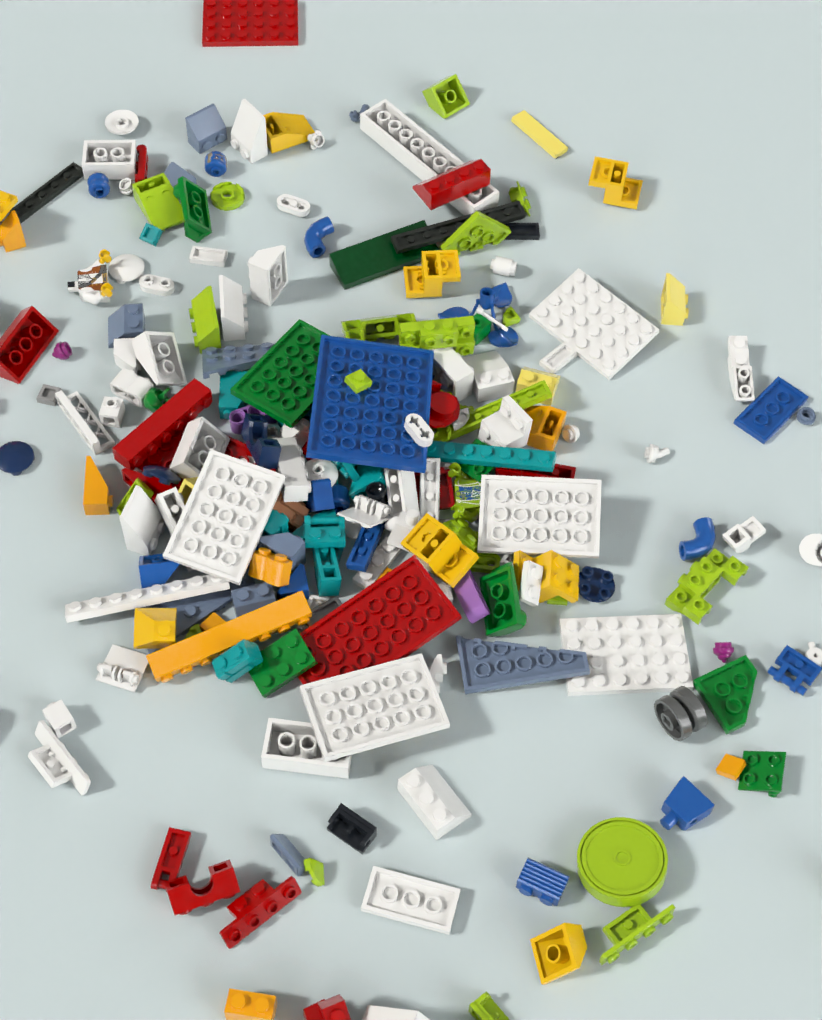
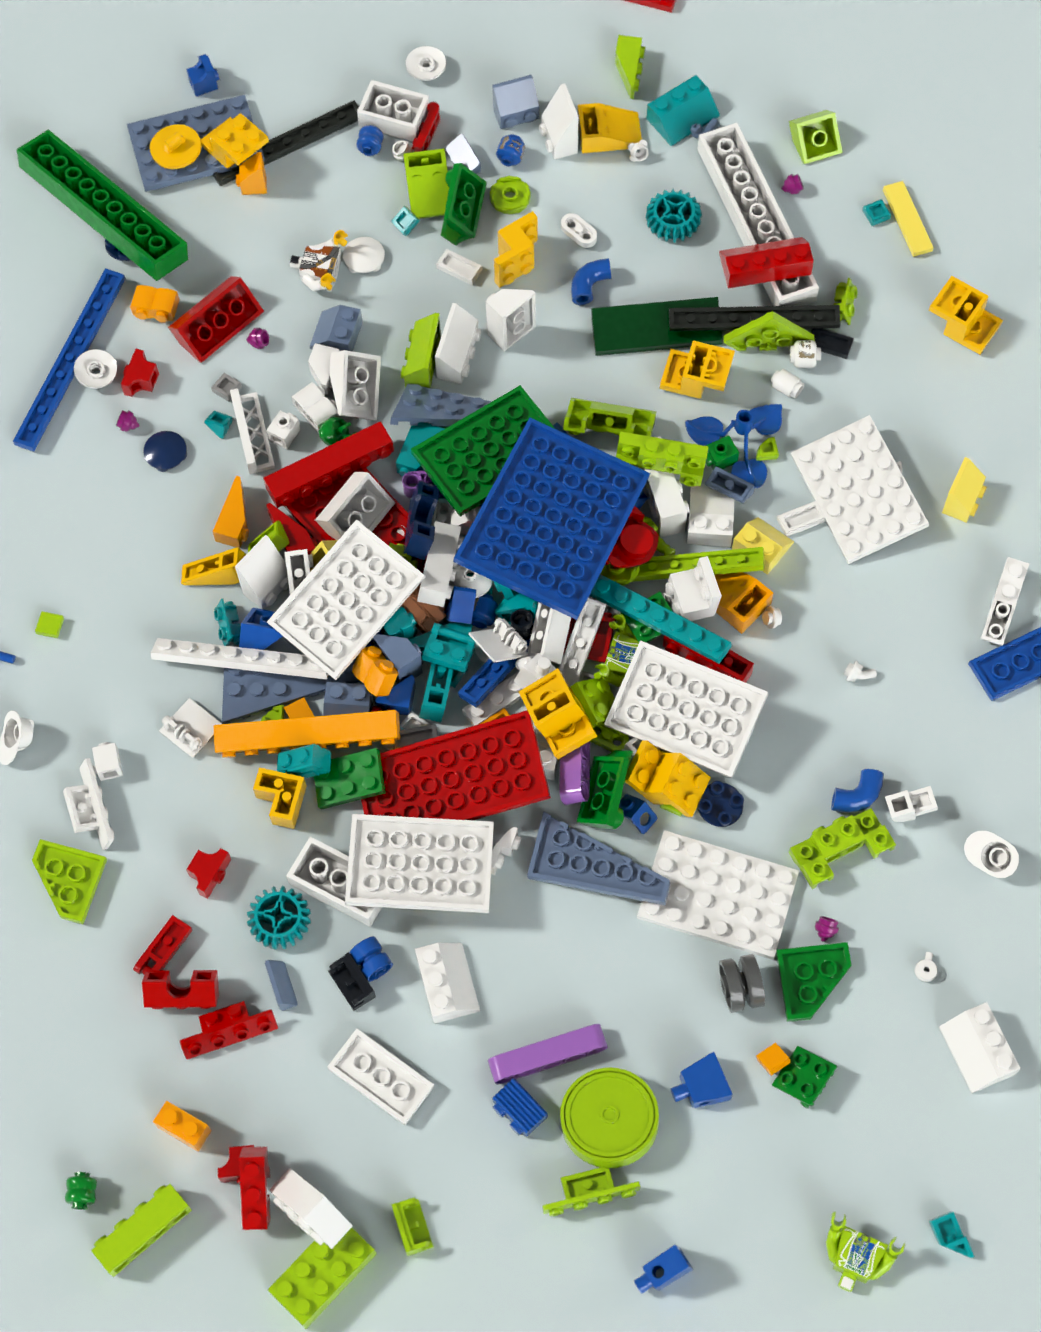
camera: 25 degrees right, 10 degrees up
(53, 423) = (219, 423): none -> teal slope
(60, 828) = (69, 877): none -> lime plate
(98, 534) = (213, 570): none -> yellow slope
(119, 569) = (225, 615): none -> teal hinge
(154, 628) = (236, 696): yellow slope -> none
(156, 285) = (388, 285): white plate -> none
(164, 474) = (304, 525): dark blue dish -> none
(186, 779) = (208, 870): none -> red brick
(226, 690) = (284, 791): none -> yellow brick
(251, 228) = (516, 249): none -> yellow bracket
(261, 779) = (297, 921): none -> teal gear
(280, 83) = (627, 60): none -> lime slope
(316, 871) = (298, 1011): lime tile -> none
(336, 103) = (682, 108): none -> teal slope
(358, 381) = (546, 488): lime plate -> none
(361, 802) = (369, 956): none -> blue wheel
(363, 175) = (672, 223): none -> teal gear
(421, 429) = (584, 569): white beam -> none
(443, 133) = (793, 184): none -> magenta plate
(462, 419) = (655, 562): white tile -> none
(480, 311) = (731, 435): white hinge -> none
(494, 348) = (730, 485): none -> sand blue slope
(507, 242) = (805, 354): none -> white head
(514, 136) = (876, 212): none -> teal tile
(531, 583) = (643, 783): white plate -> none
(531, 612) = (633, 810): none -> blue bracket
(545, 829) = (547, 1054): none -> medium lavender beam
(559, 951) = (505, 1184): yellow slope -> none
(731, 964) = (674, 1266): none -> blue torso
(797, 665) = (900, 973): blue plate -> none

